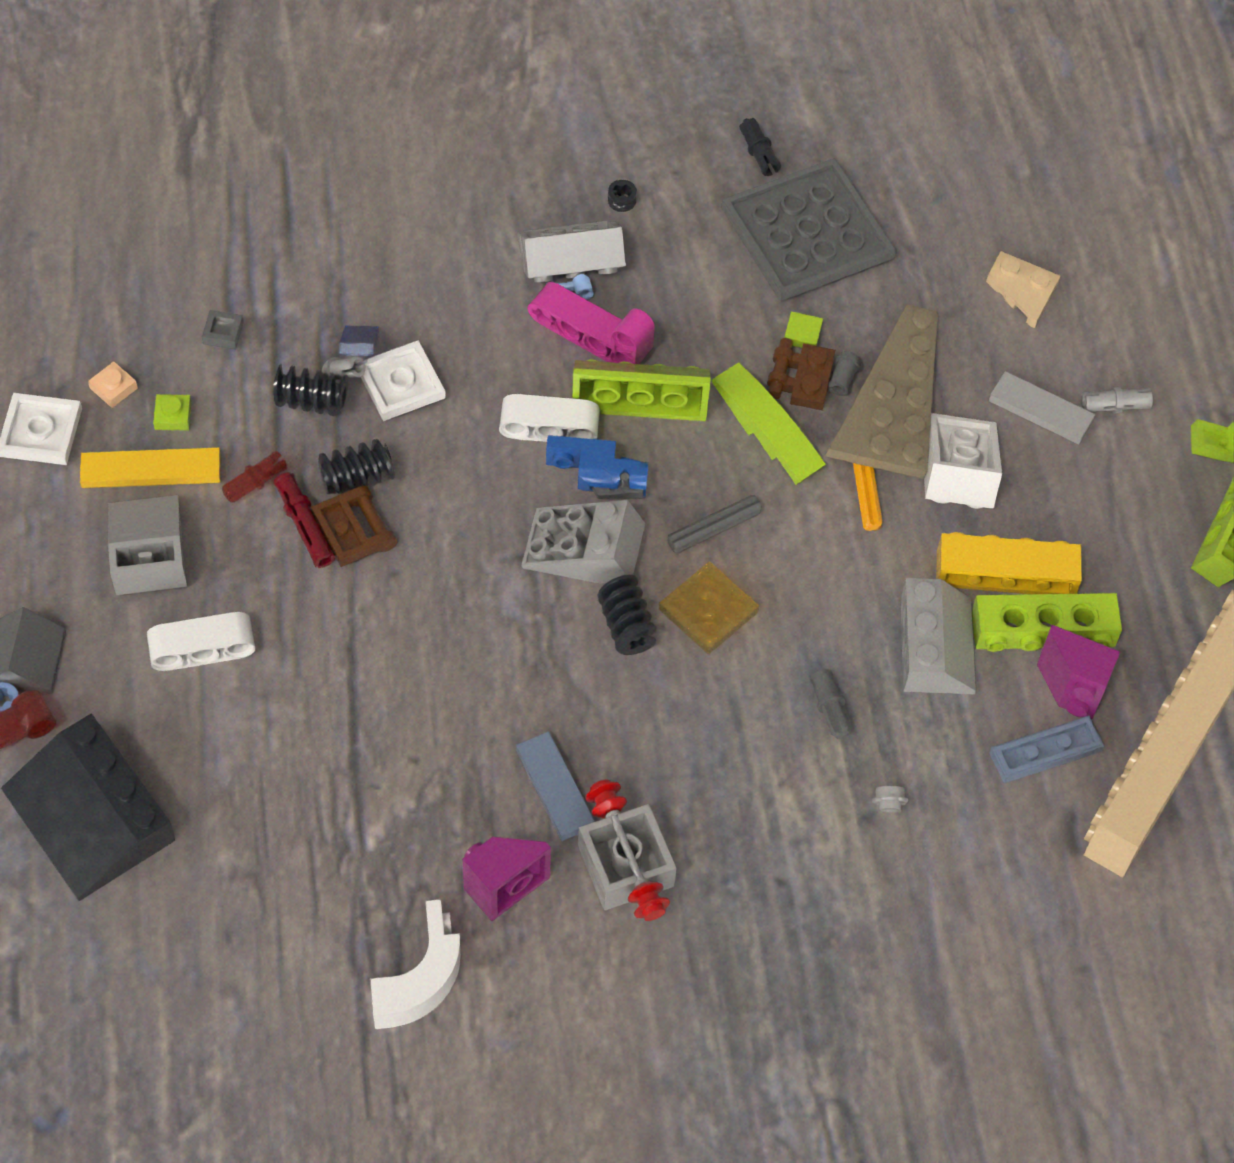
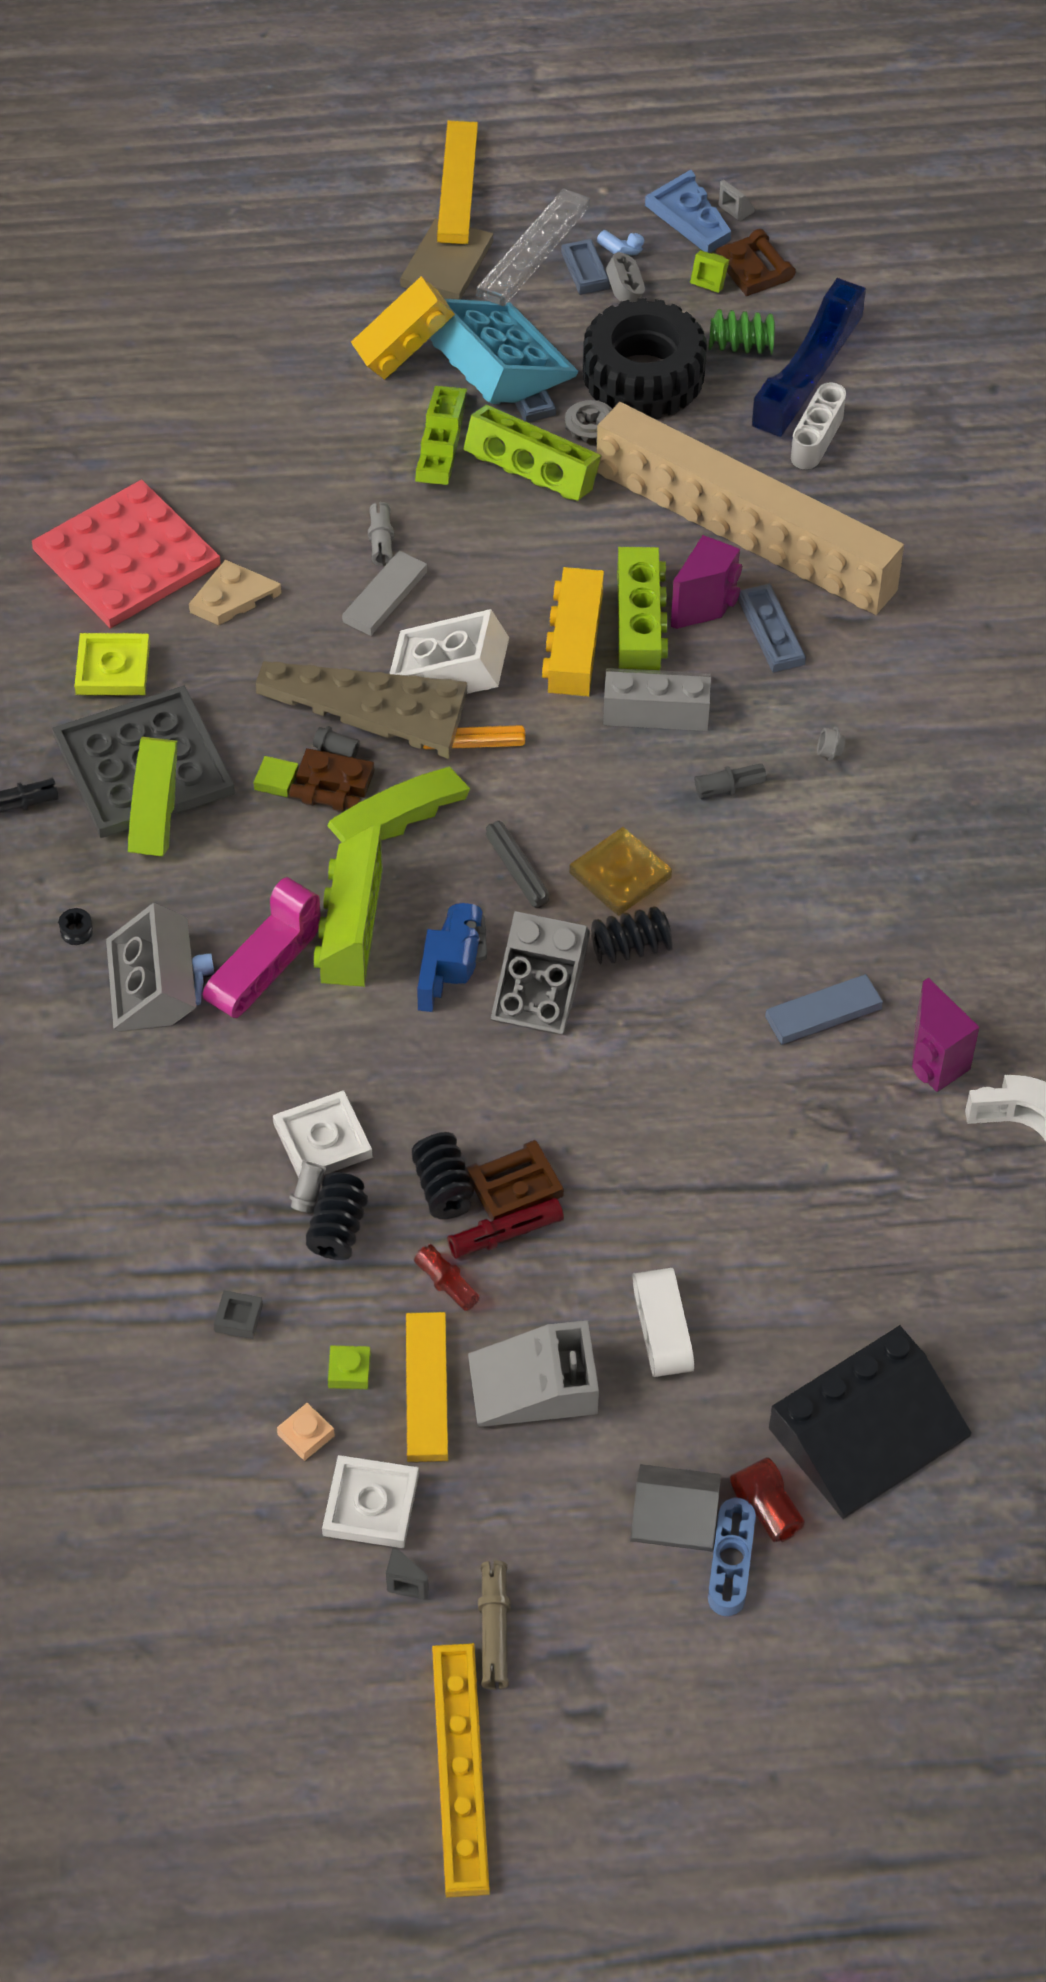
camera: 85 degrees left, 5 degrees down
(358, 340) = (273, 1168): clear blue tile -> none
(539, 416) = (383, 998): white beam -> none
(626, 853) = (913, 939): light grey brick -> none
(745, 224) = (153, 797): none -> lime slope
(919, 199) = (112, 664): none -> neon yellow plate
(1061, 203) = (126, 553): none -> coral plate

